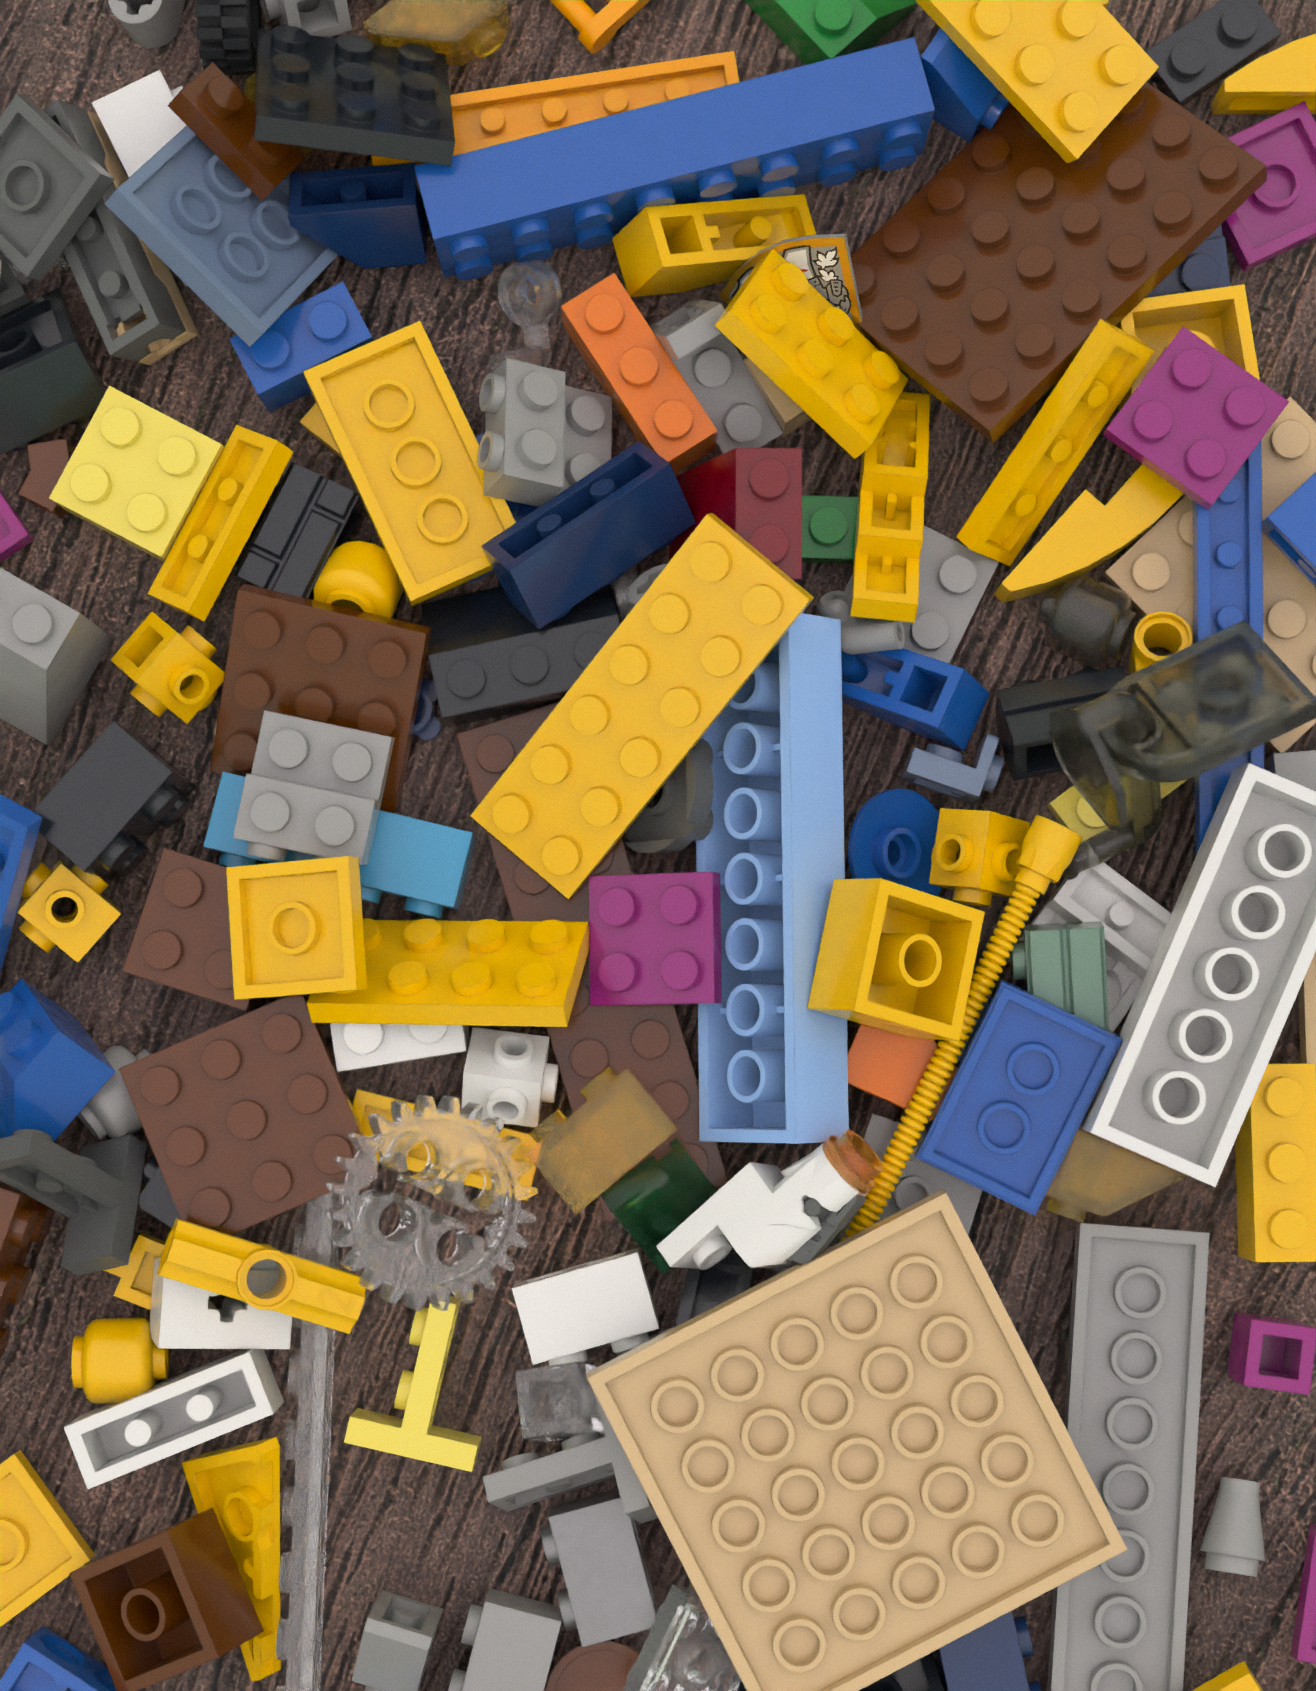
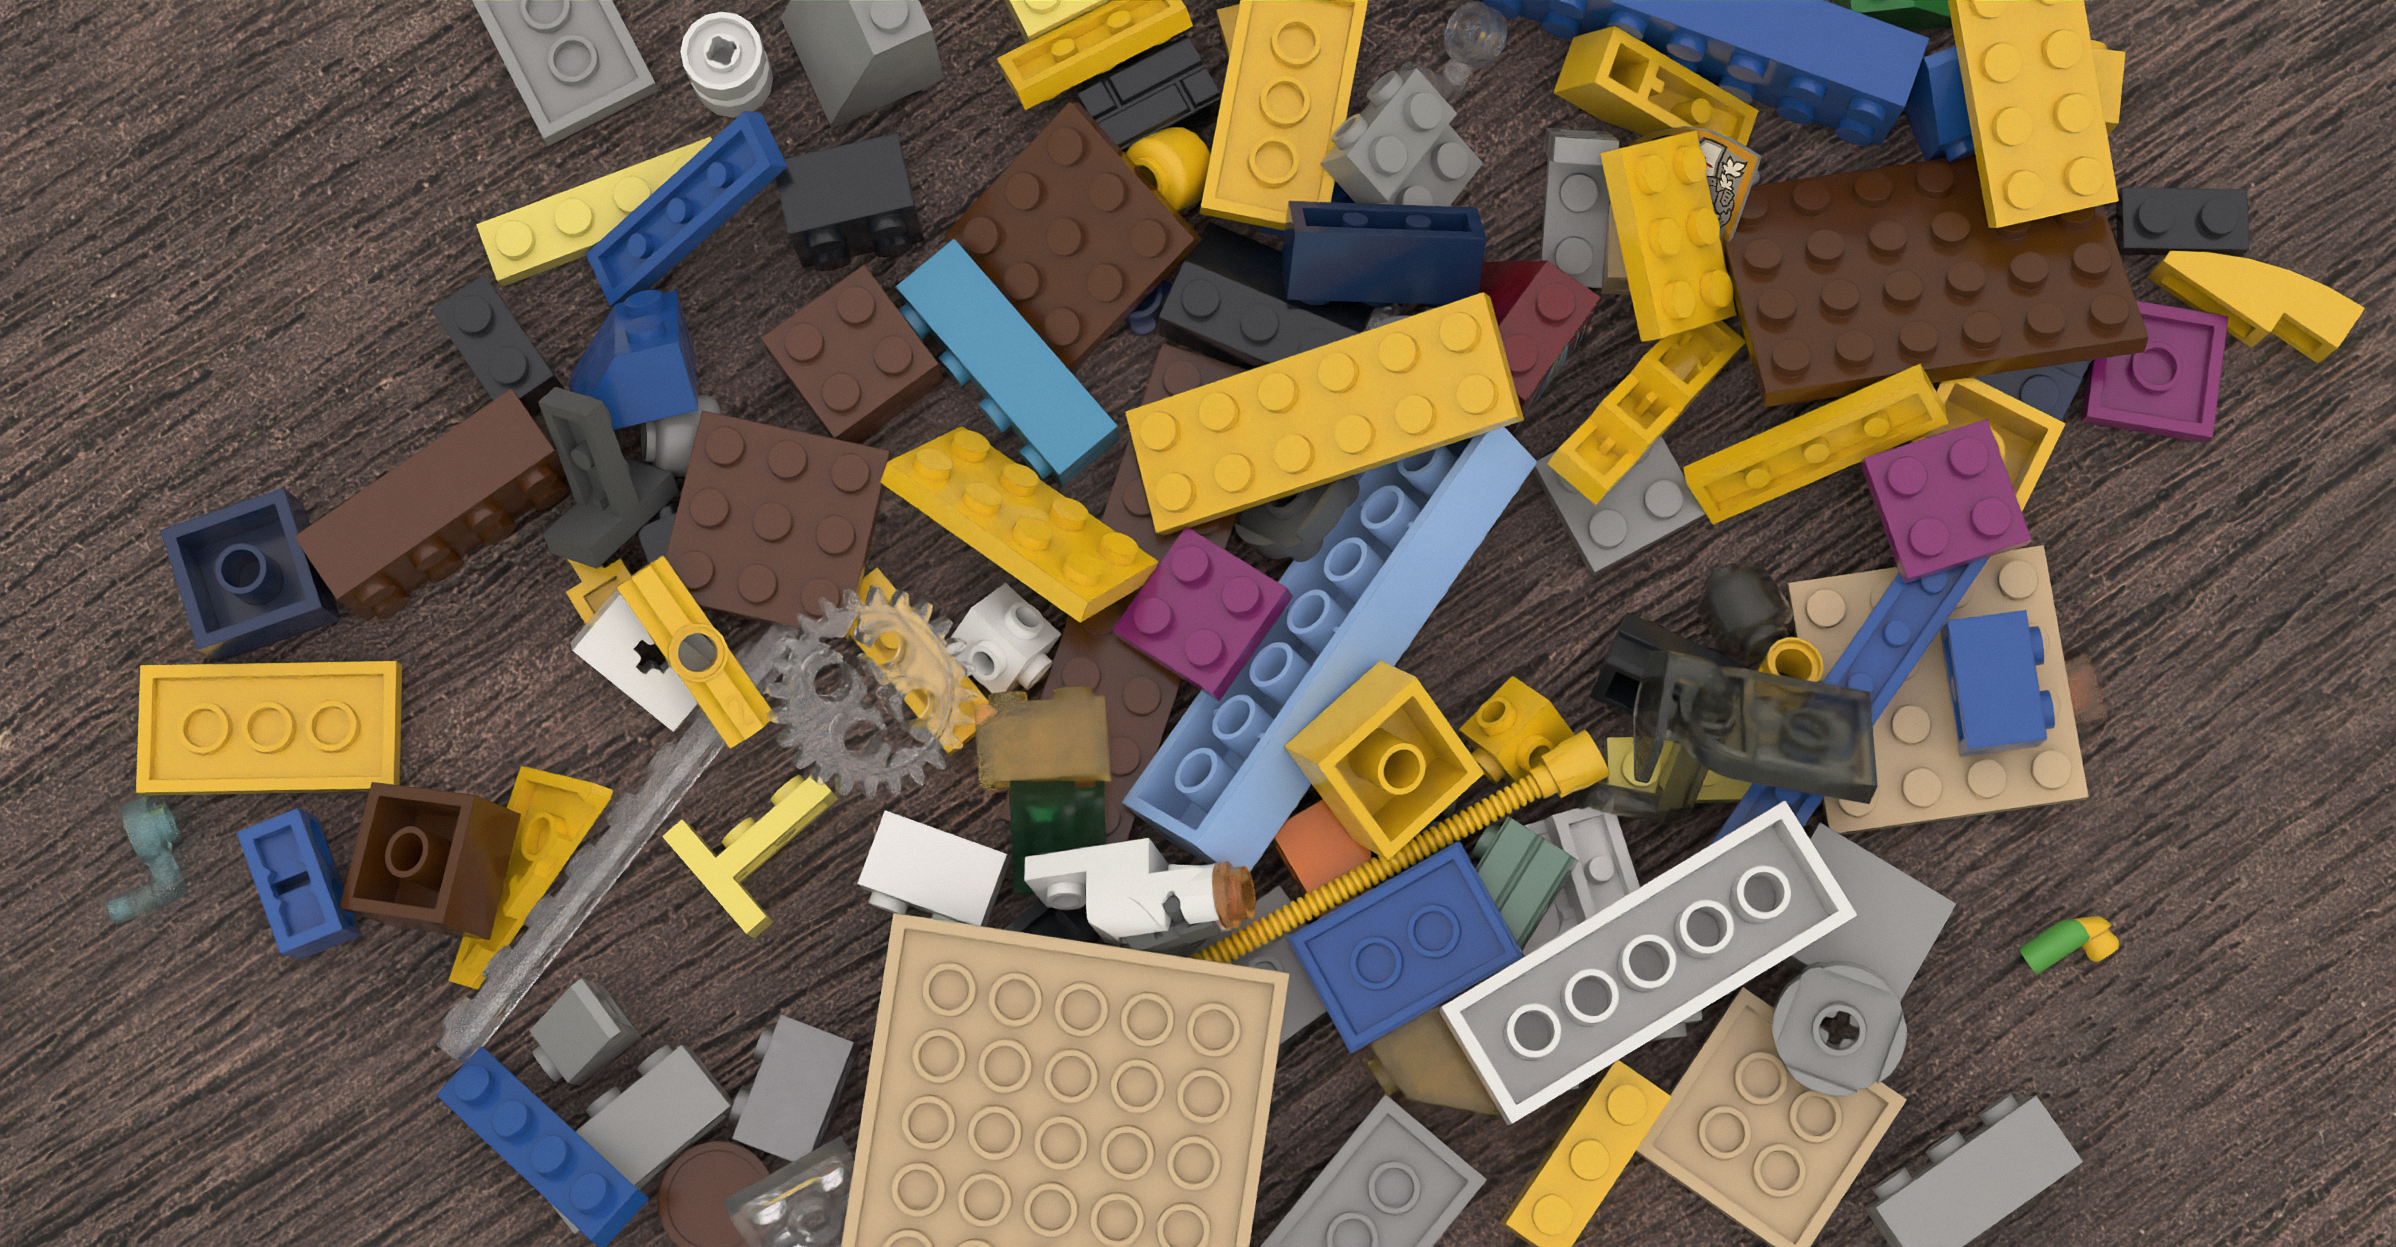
camera: 35 degrees right, 5 degrees down
(70, 932) = (754, 285): yellow brick -> none
(117, 1360) = (531, 647): yellow head -> none
(170, 668) = (971, 130): yellow brick -> none
(174, 1416) = (544, 719): white brick -> none
(296, 928) = (922, 395): yellow plate -> none
(313, 789) = (1014, 303): light grey plate -> none
(385, 1044) = (935, 551): white brick -> none
(557, 1402) = (854, 930): clear brick -> none
(582, 1462) = (834, 994): light grey bracket -> none
(638, 374) = (1516, 159): orange brick -> none
(828, 529) = (1579, 387): green plate -> none
(858, 633) = (1545, 486): light grey arm -> none
(895, 839) = (1472, 666): blue dish -> none
(915, 693) = (1555, 562): blue slope -> none
(942, 771) = (1537, 650): sand blue bracket -> none
(1091, 534) = (1795, 543): yellow slope -> none

